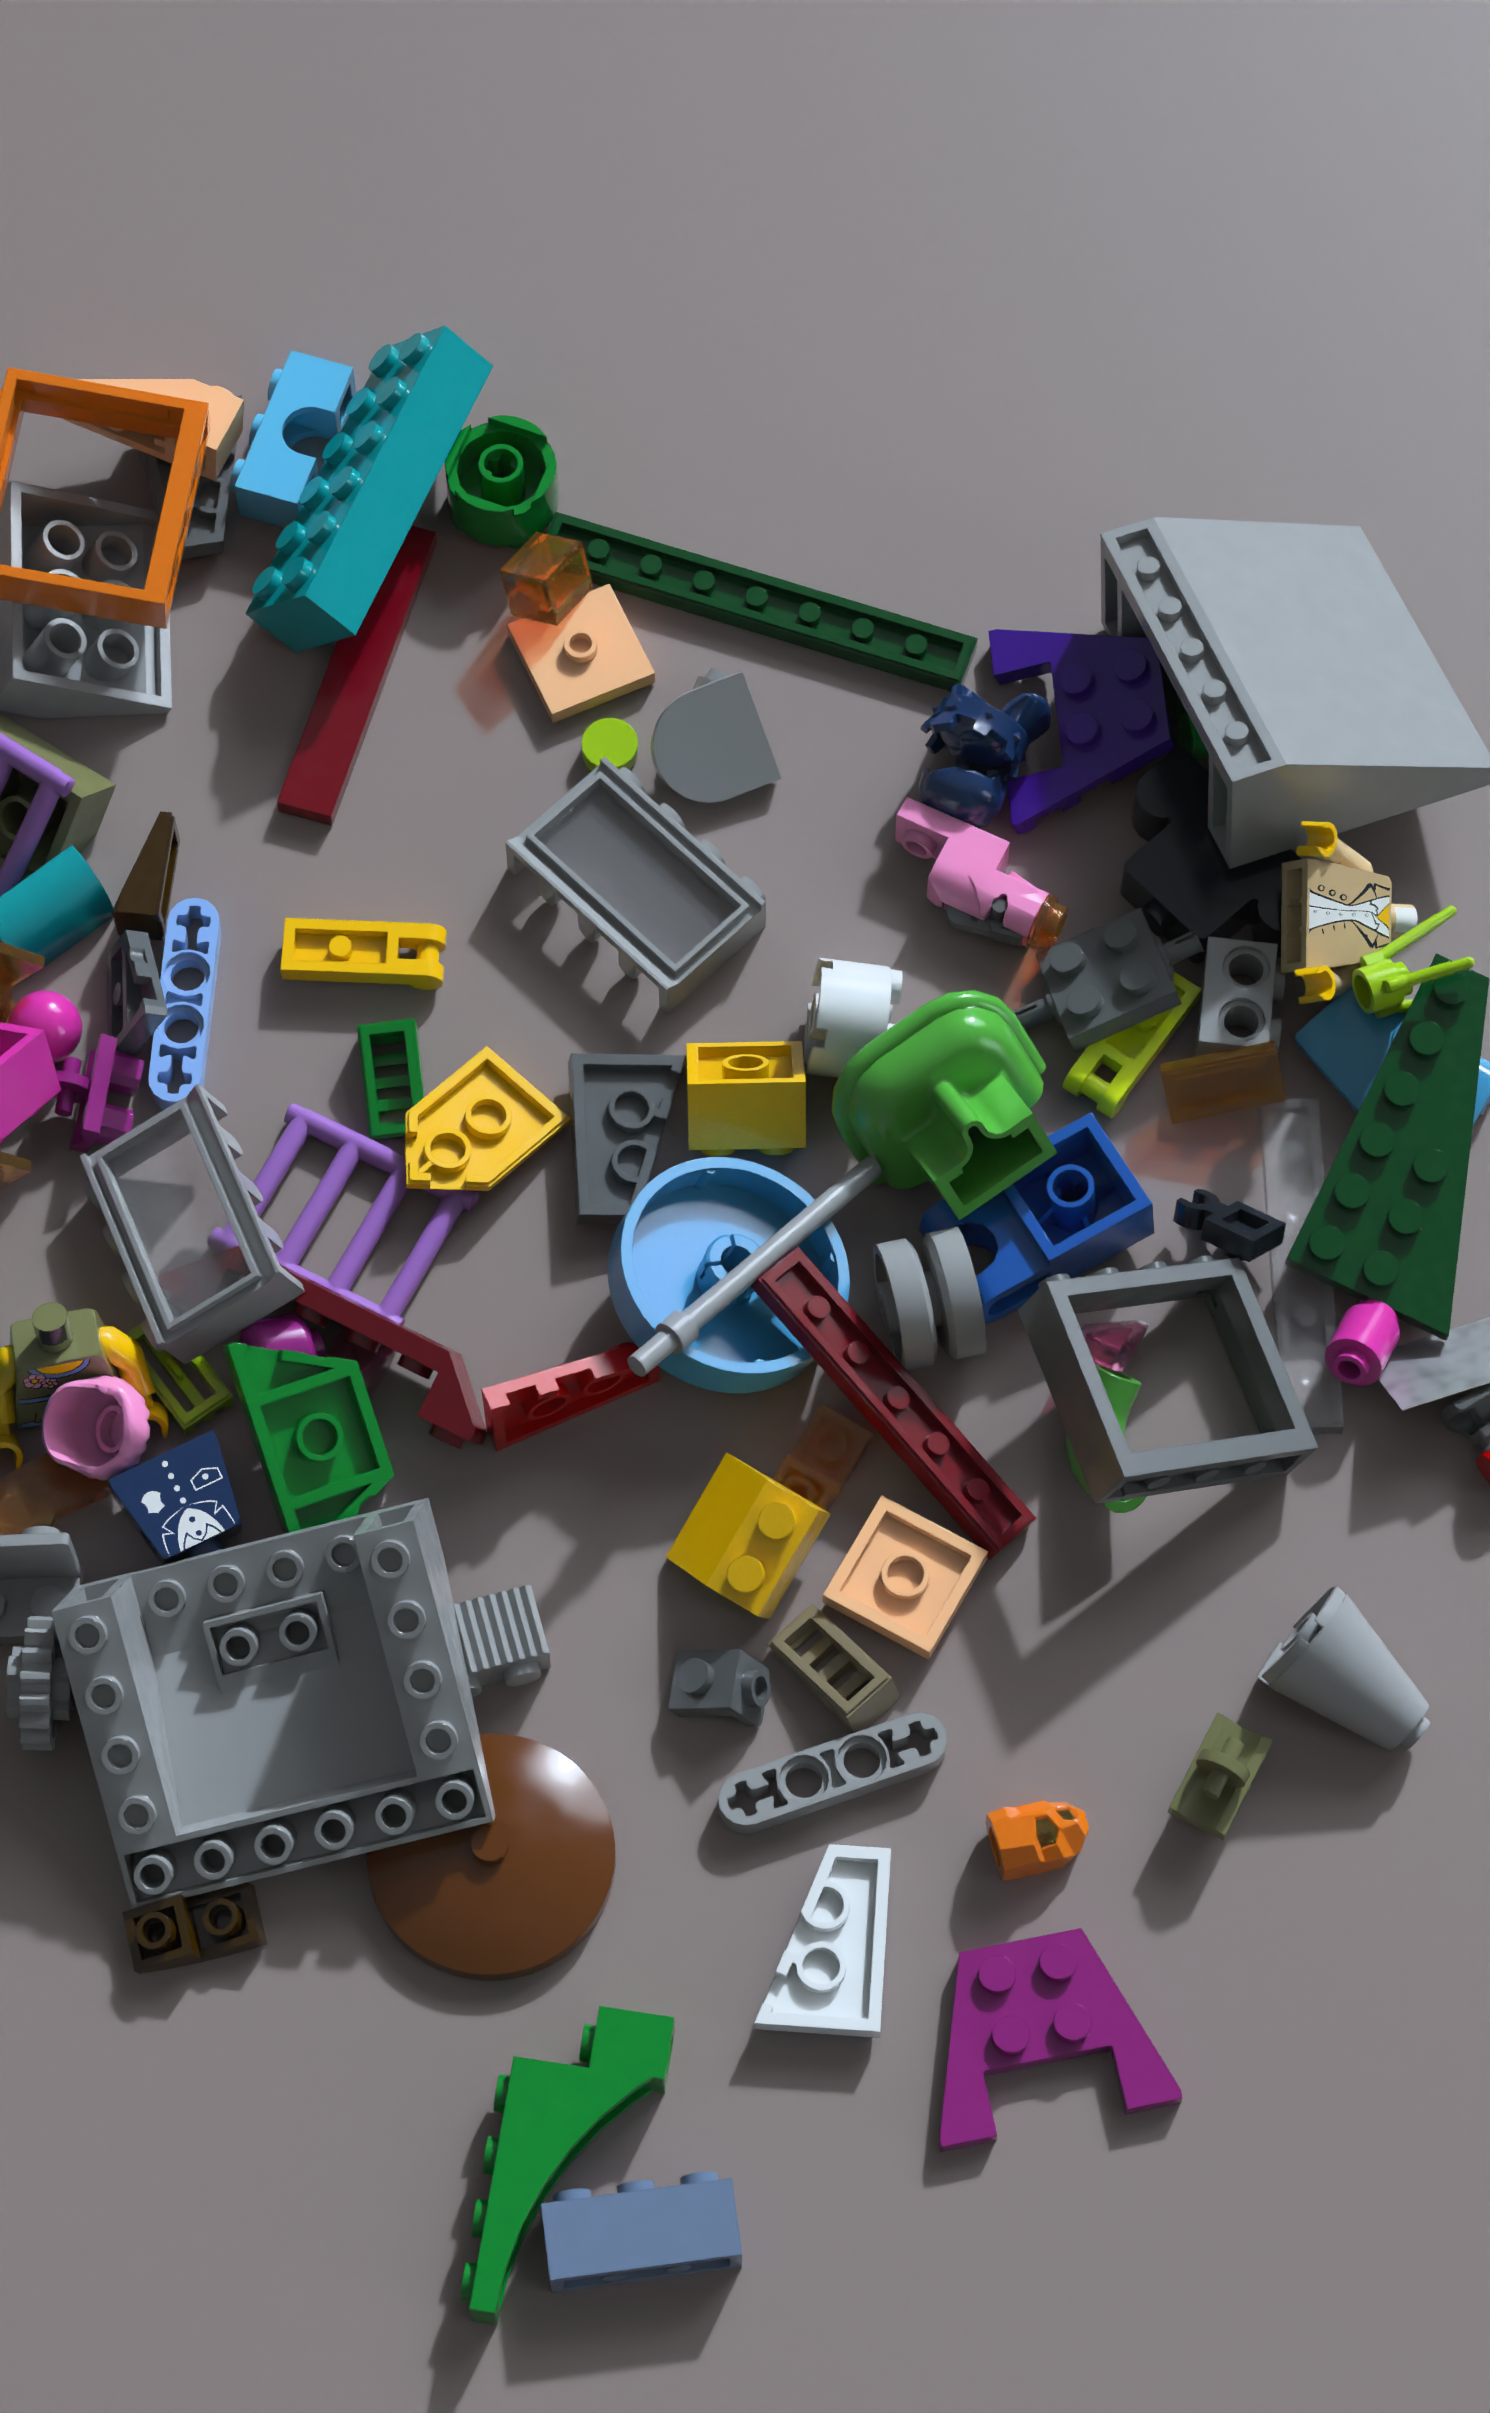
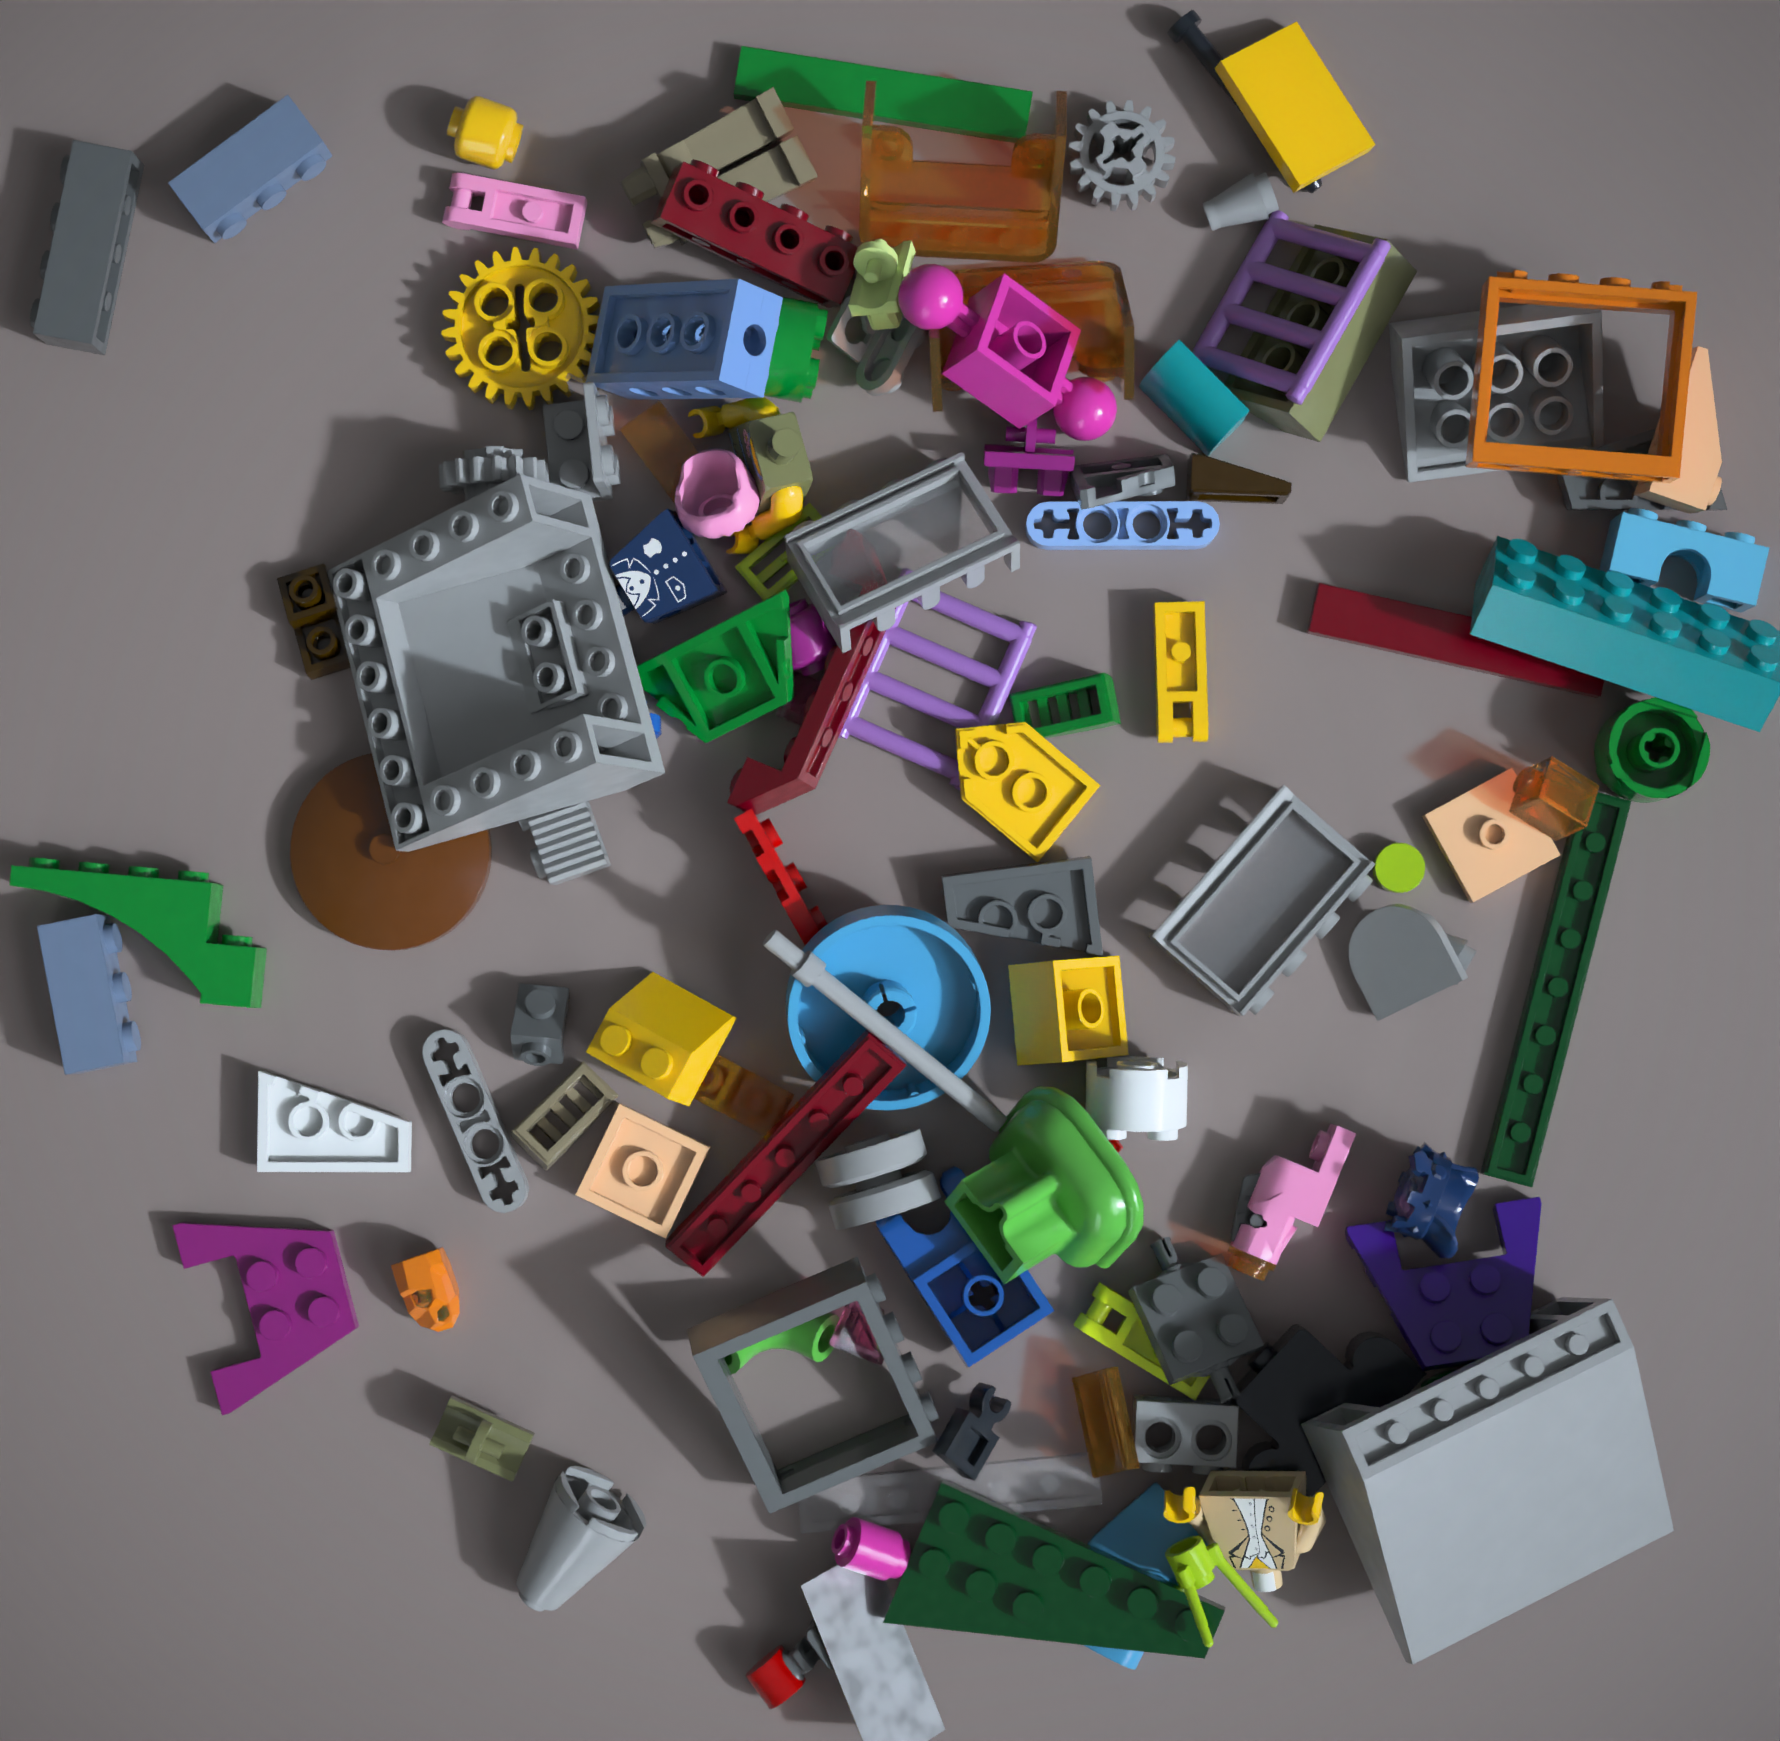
camera: 90 degrees right, 20 degrees up
(963, 794) = (1365, 1182): dark blue hair -> none

